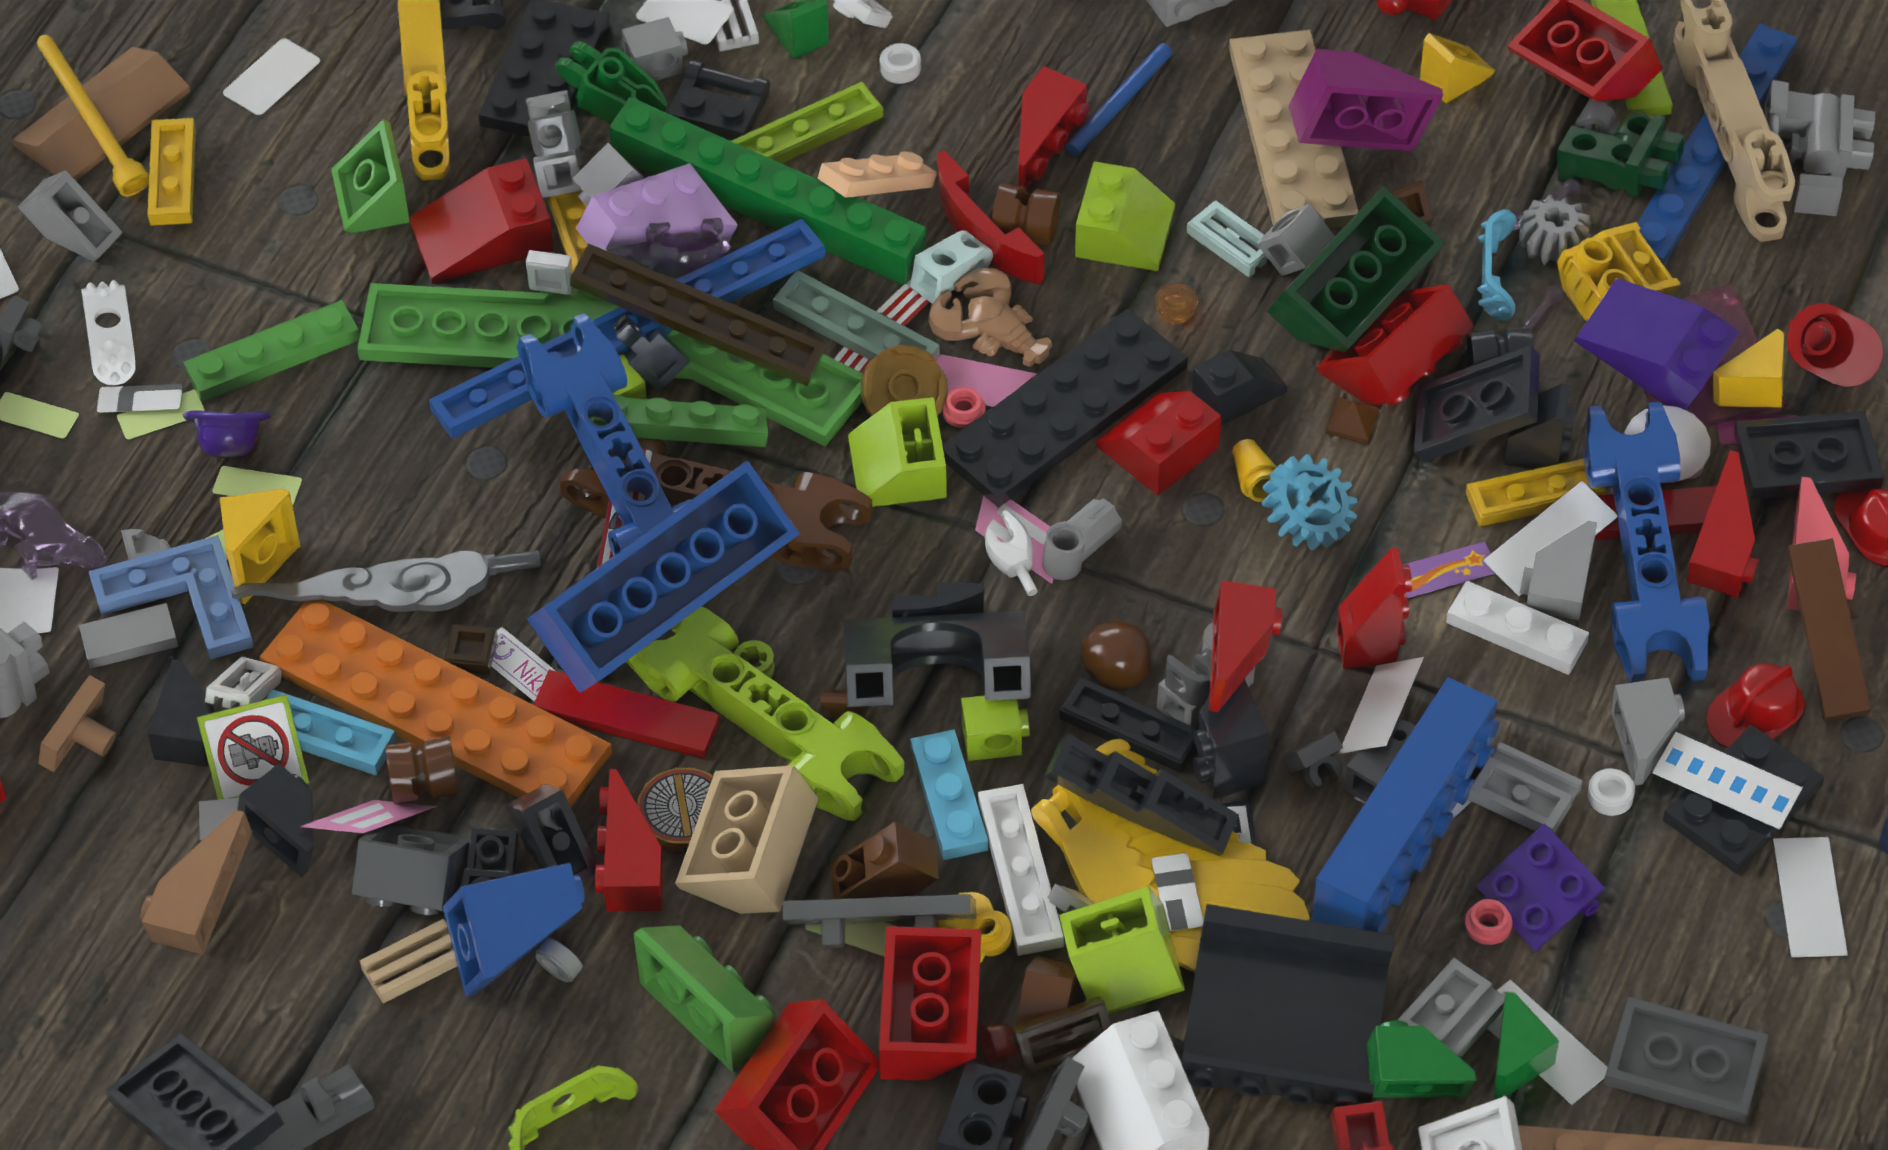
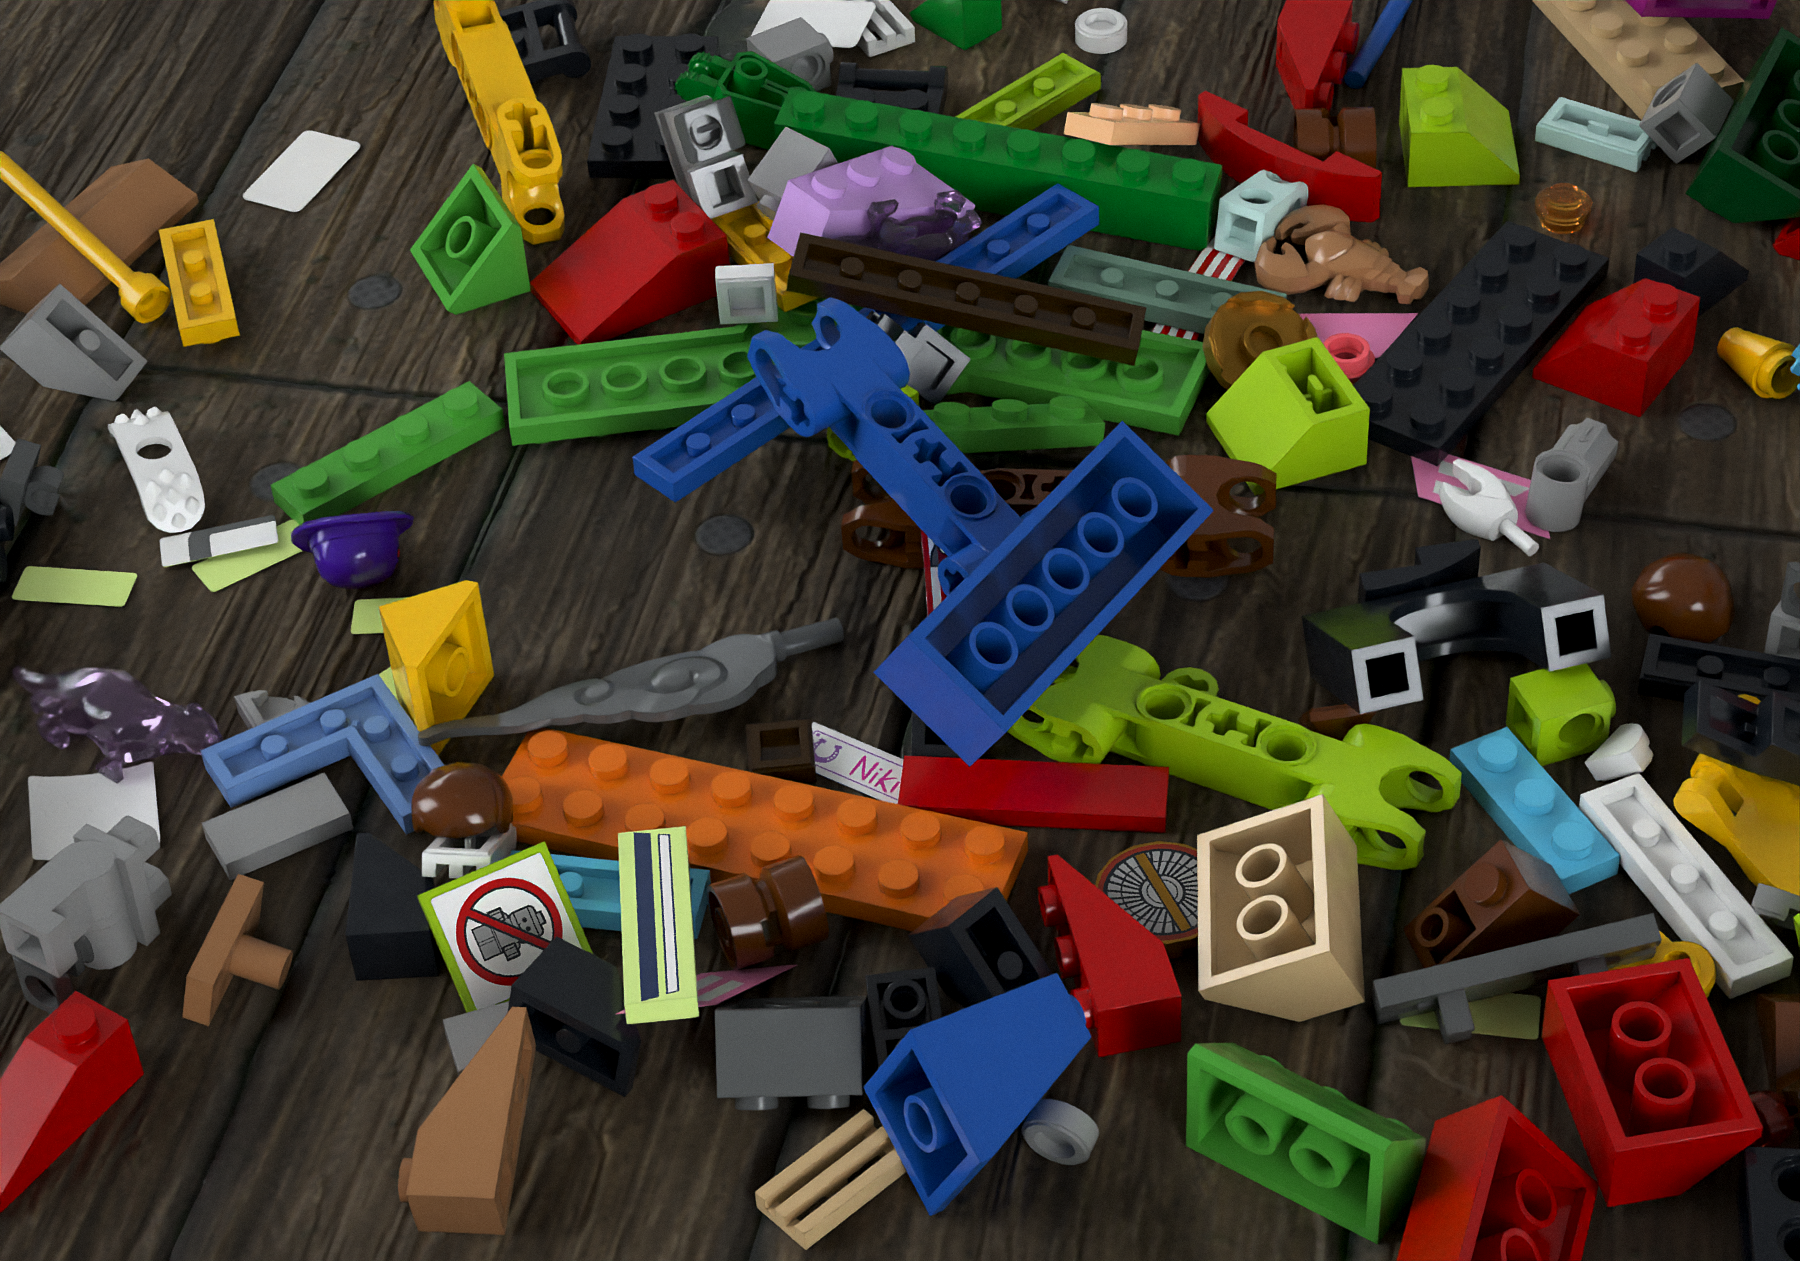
camera: 10 degrees left, 10 degrees down
(245, 651) = (461, 801): none -> reddish brown hair
(344, 767) = (657, 926): none -> yellowish green tile
(1022, 765) = (1621, 754): none -> white tile

